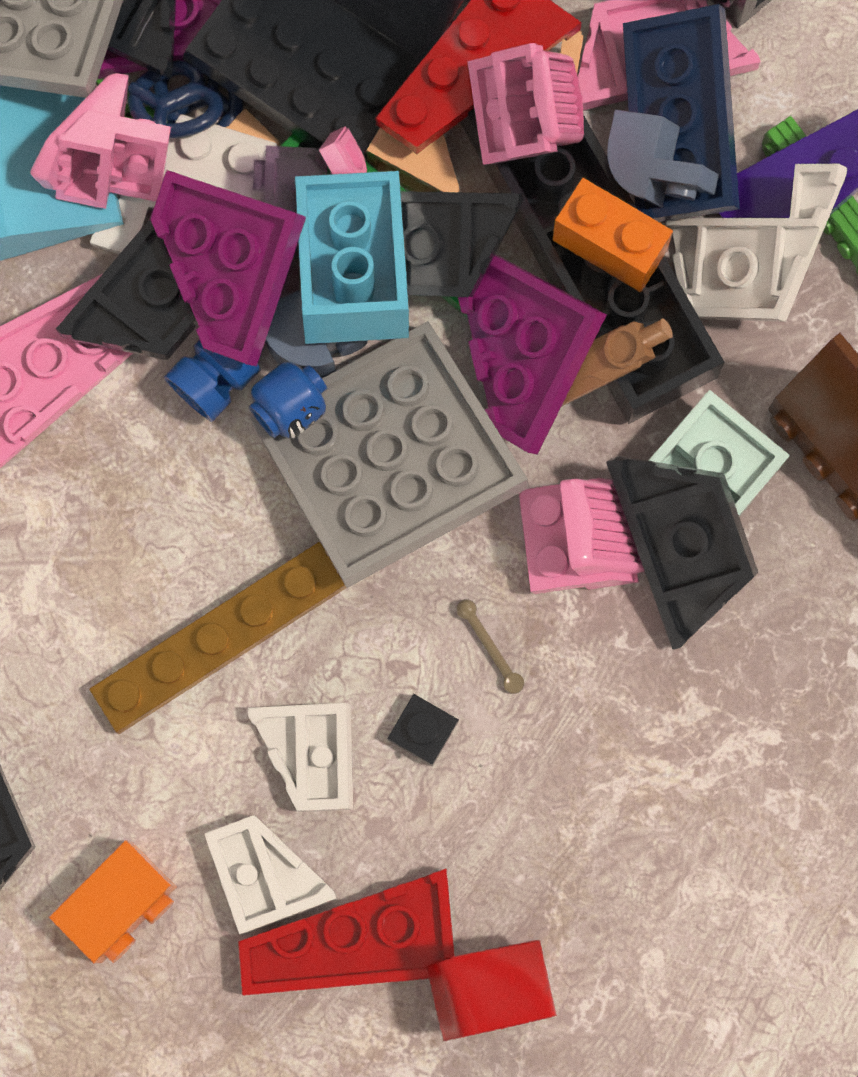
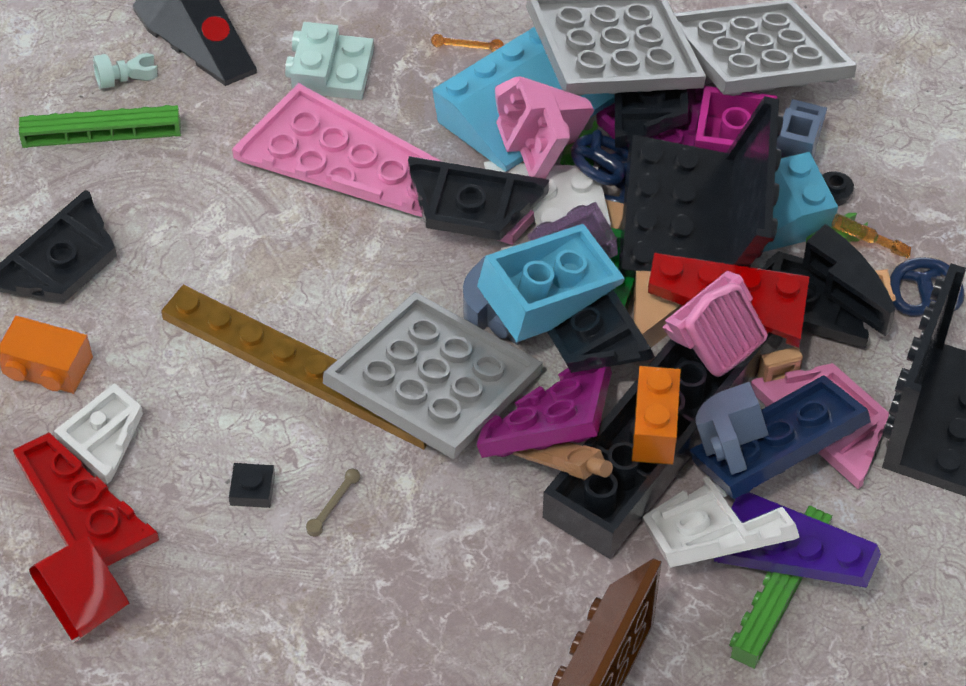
camera: 60 degrees right, 25 degrees down
(208, 380) = (445, 258): blue wheel -> none
(226, 260) = (508, 215): magenta plate -> none
(288, 400) = (435, 298): blue head -> none
(311, 752) = (201, 424): white wing -> none
(343, 153) = (619, 248): bright pink tile -> none
(577, 537) = (445, 519): bright pink piece -> none
(685, 539) = (466, 571): black wing -> none
(724, 442) = (536, 573): light aqua plate -> none

